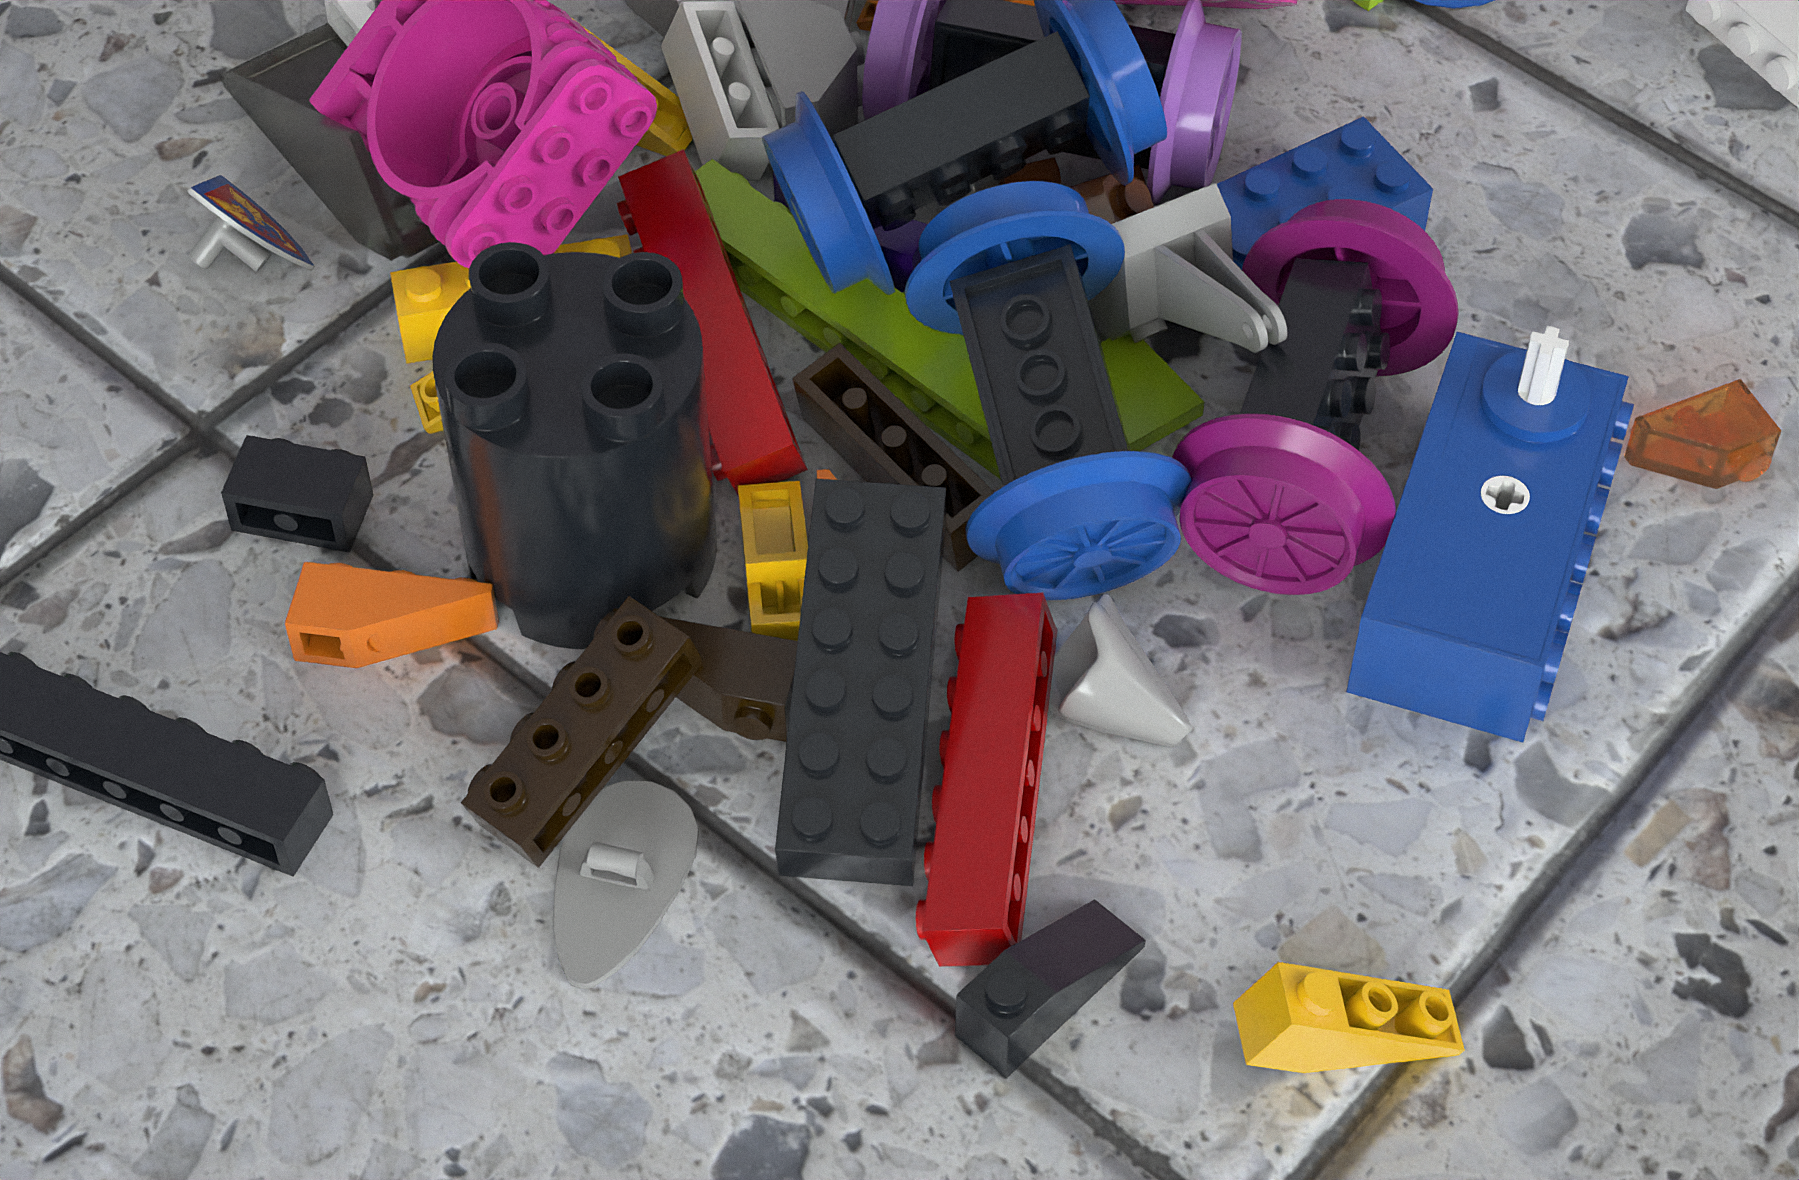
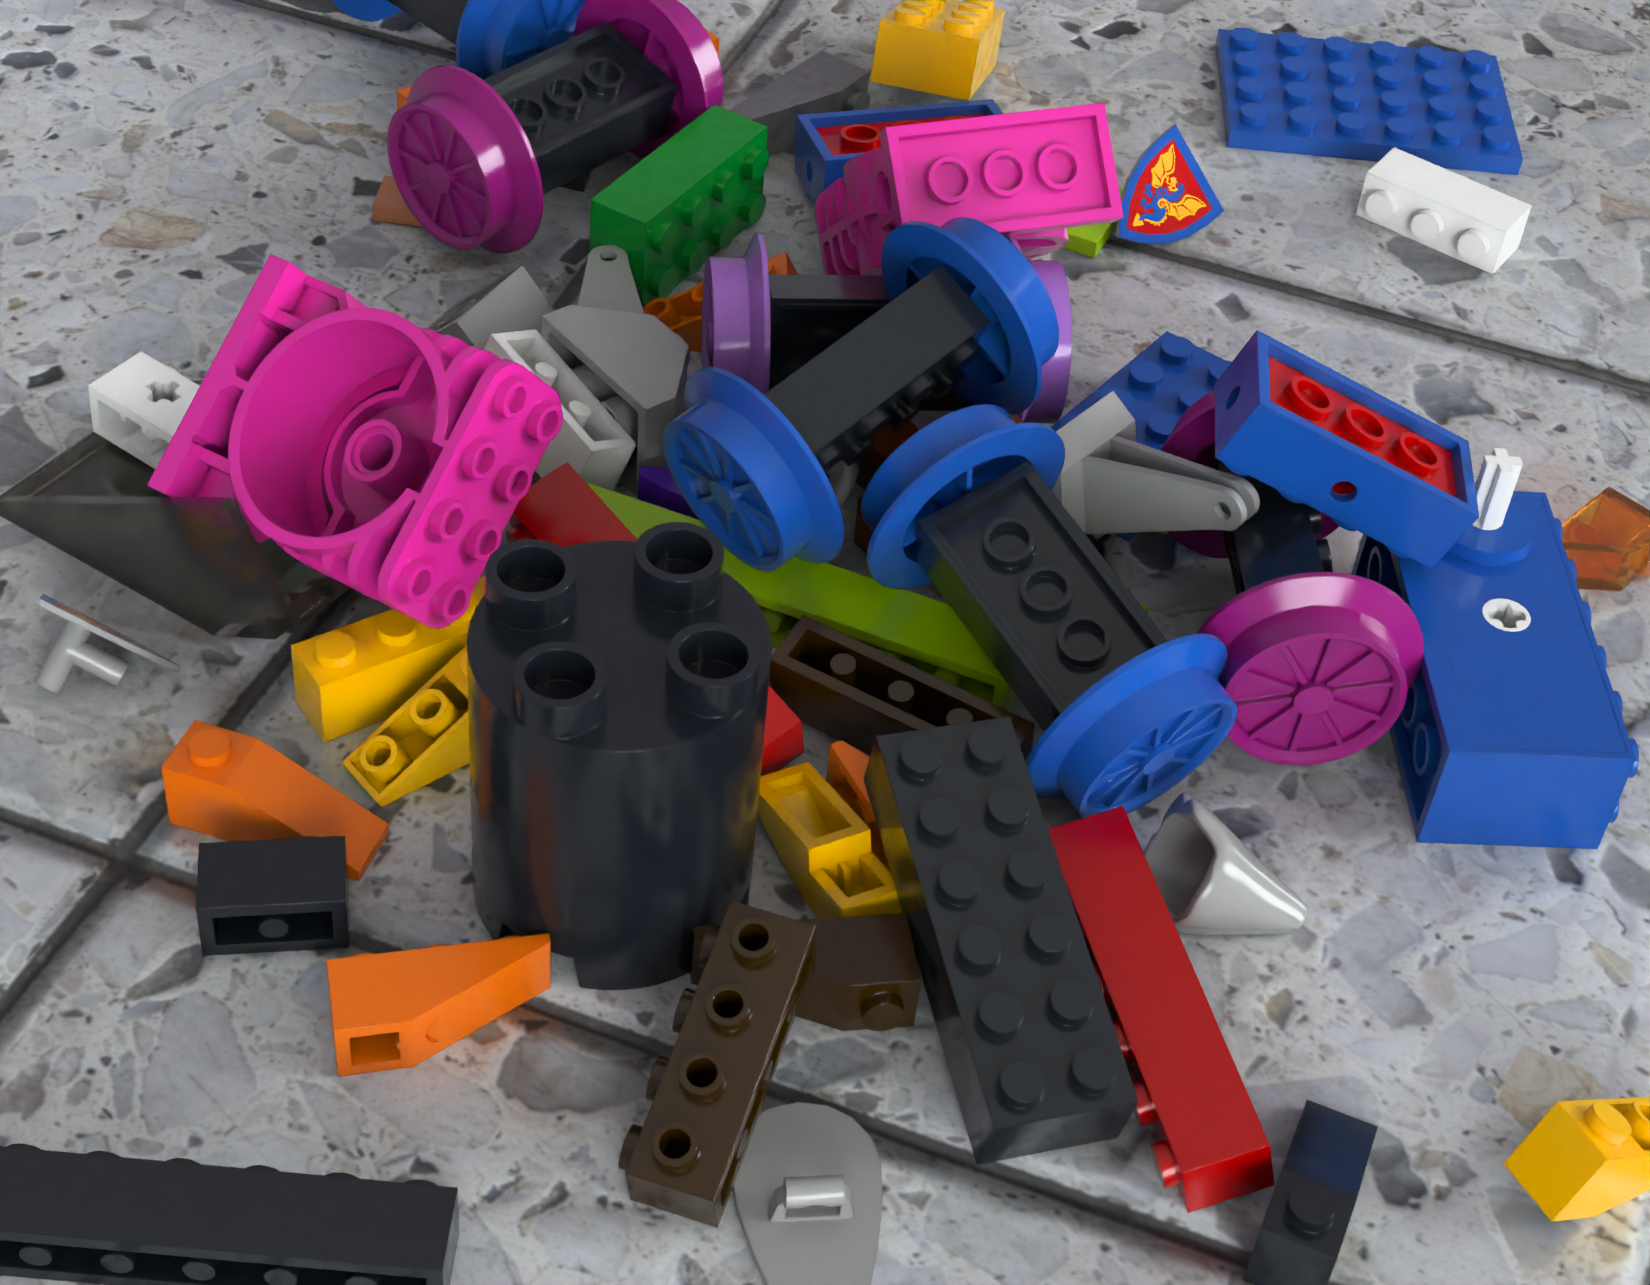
camera: 25 degrees left, 10 degrees down
(325, 406) = (249, 791): none -> orange slope
(1391, 296) = (1344, 450): none -> blue brick

